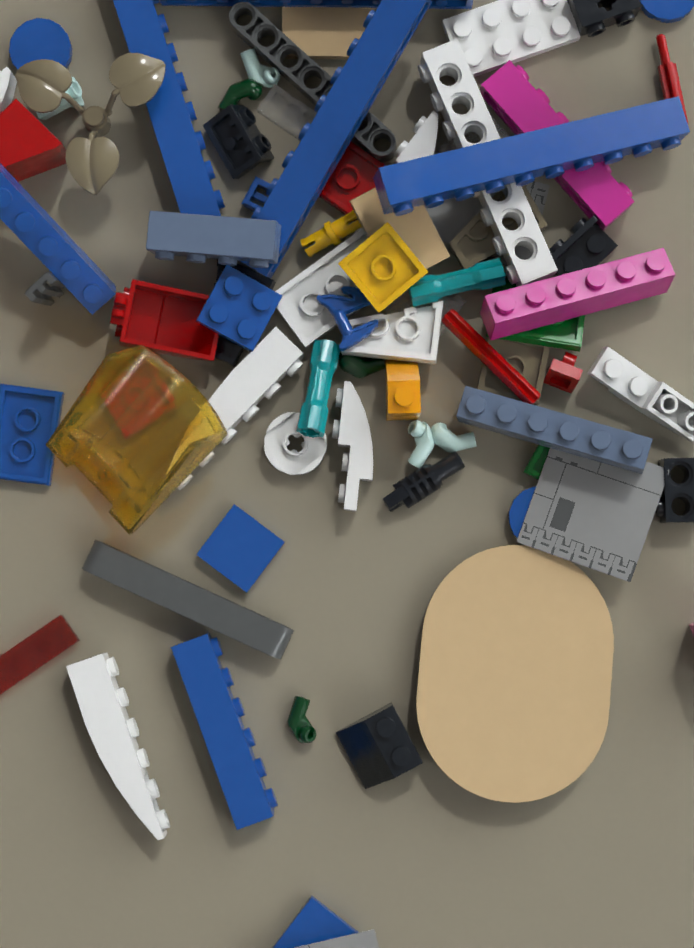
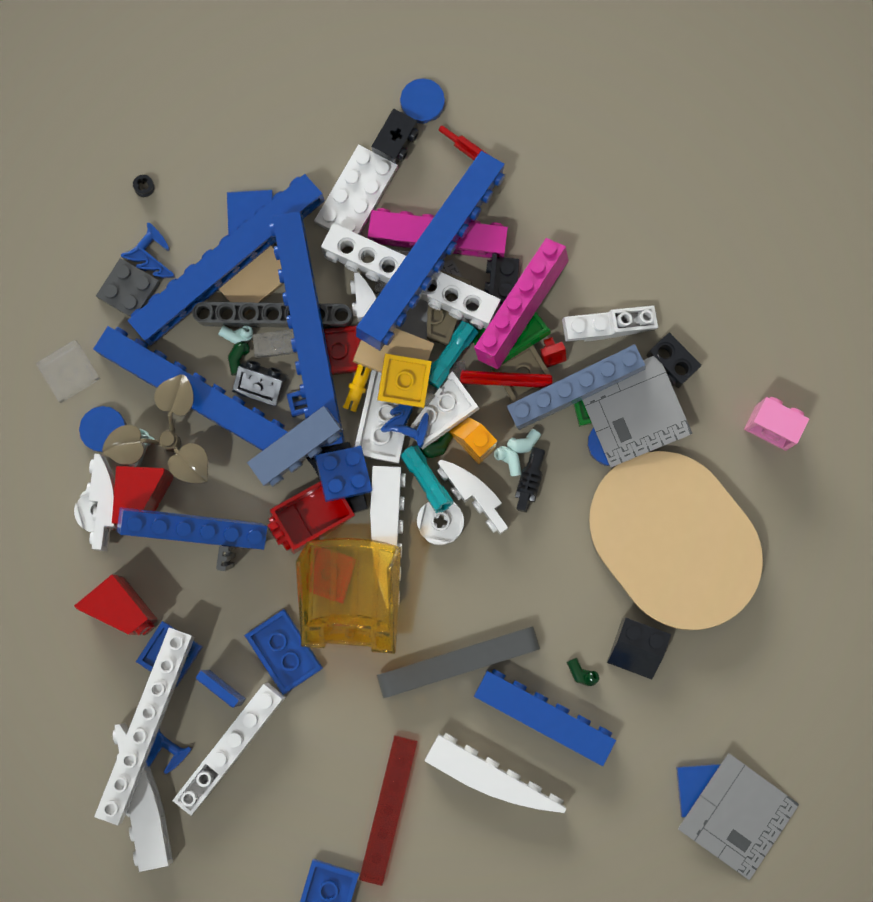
camera: 40 degrees left, 5 degrees down
(240, 548) = (462, 607): blue tile -> none

